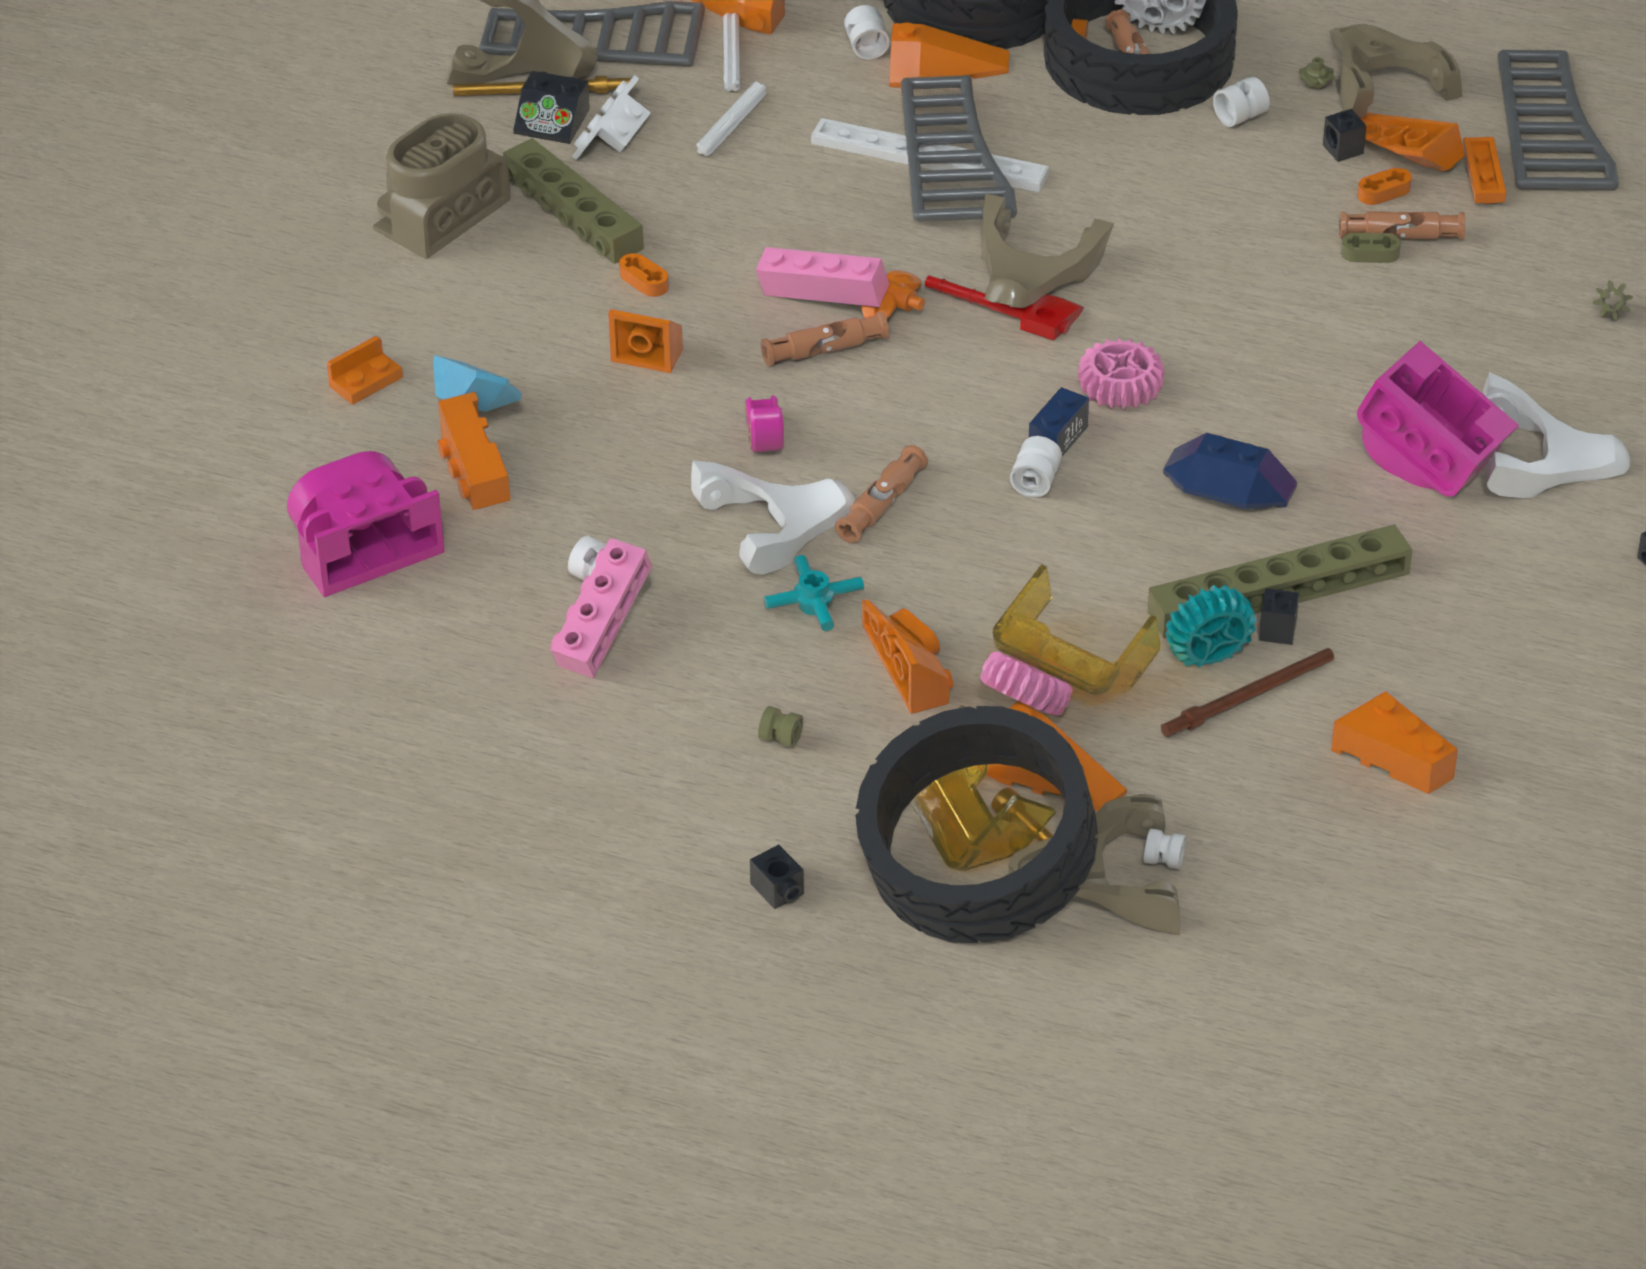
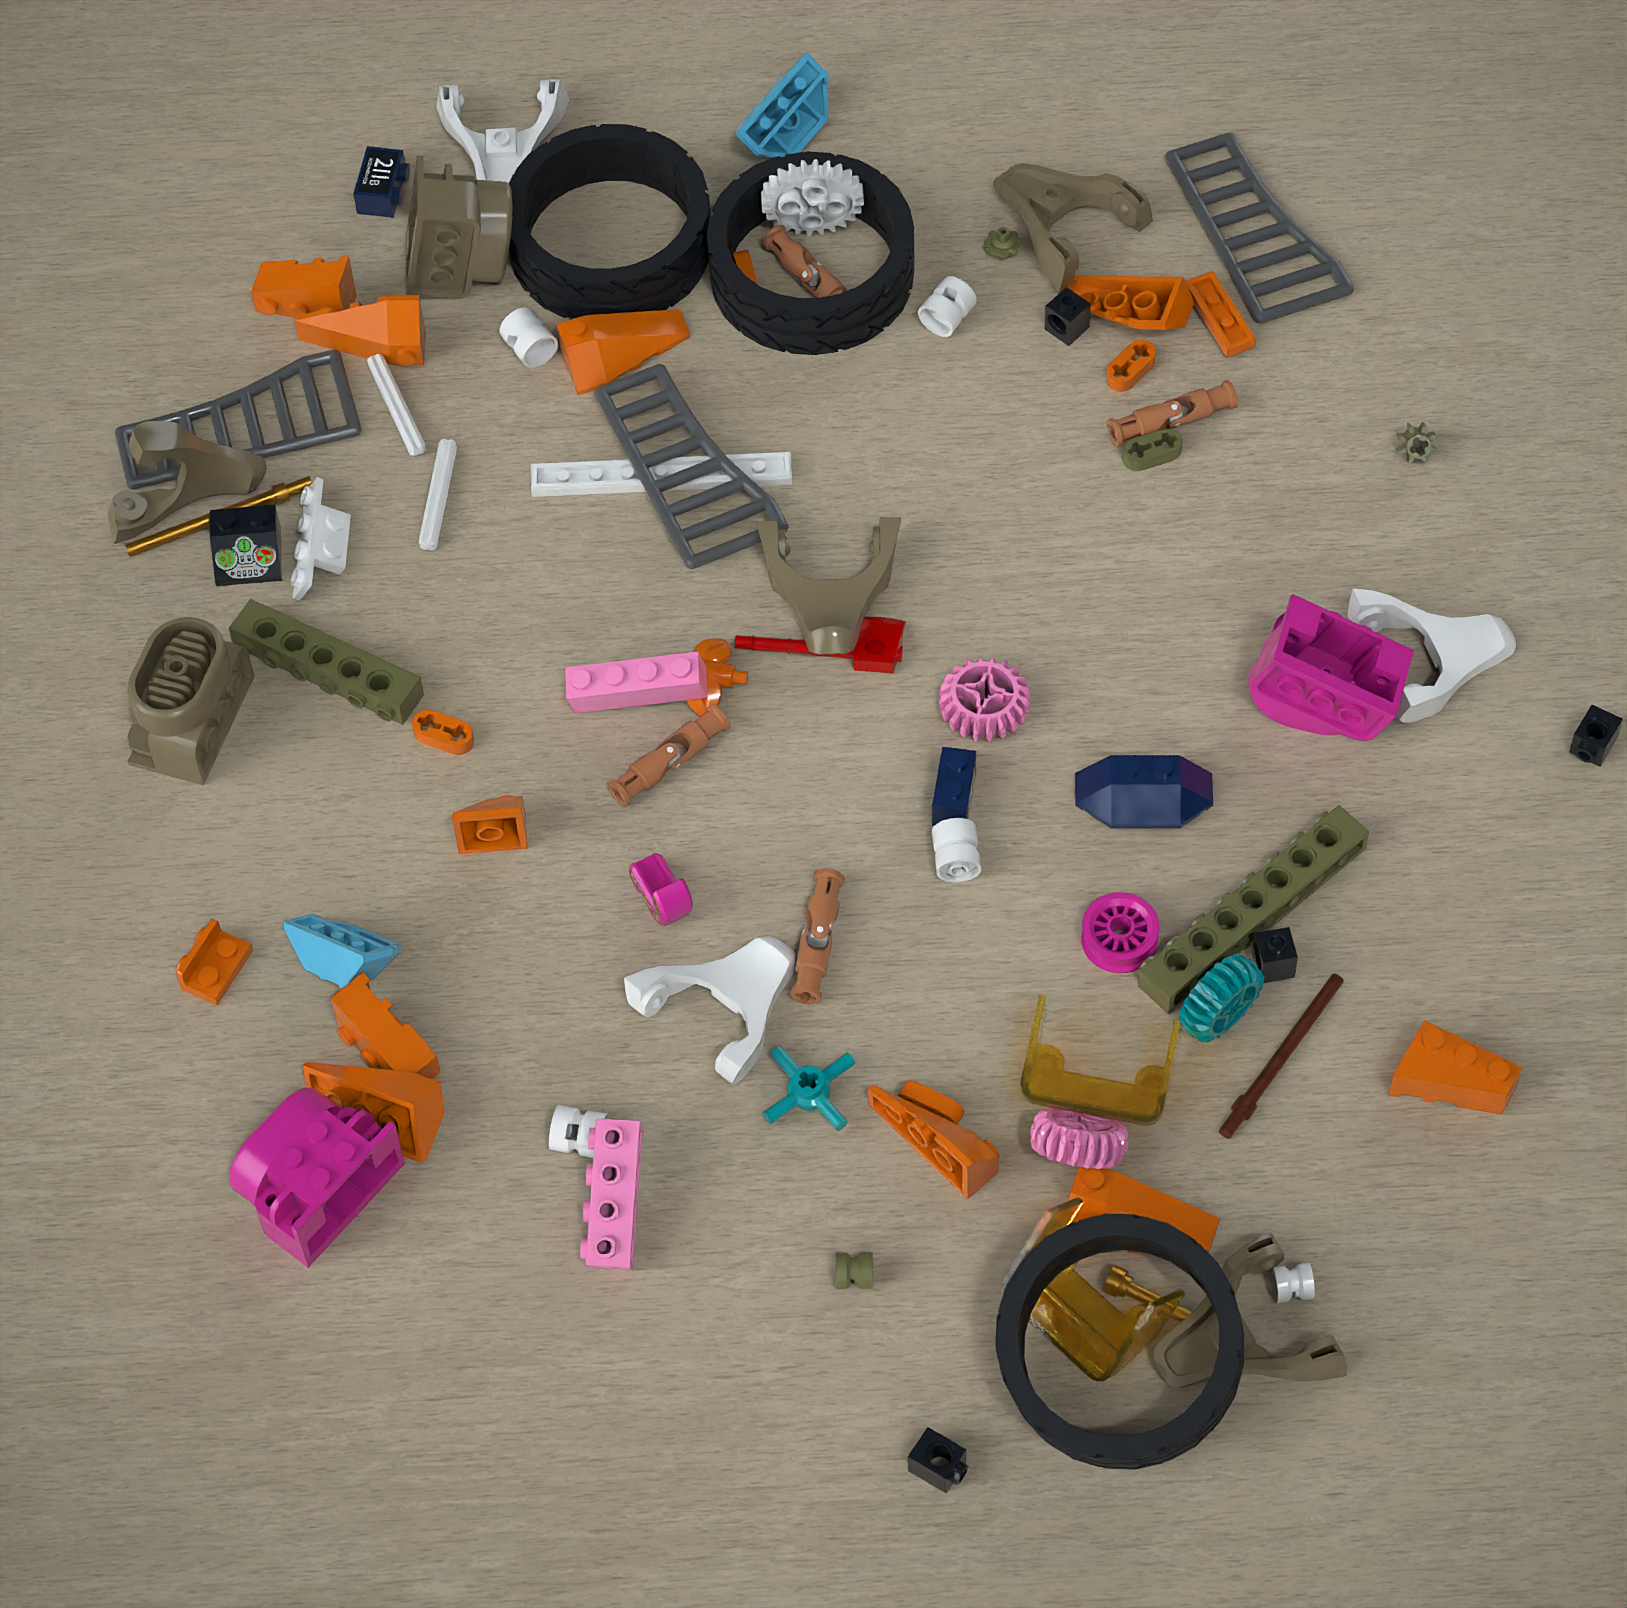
camera: 20 degrees left, 15 degrees up
(465, 498) = (389, 1095): none -> orange wedge
(1148, 561) = (1099, 930): none -> dark pink wheel

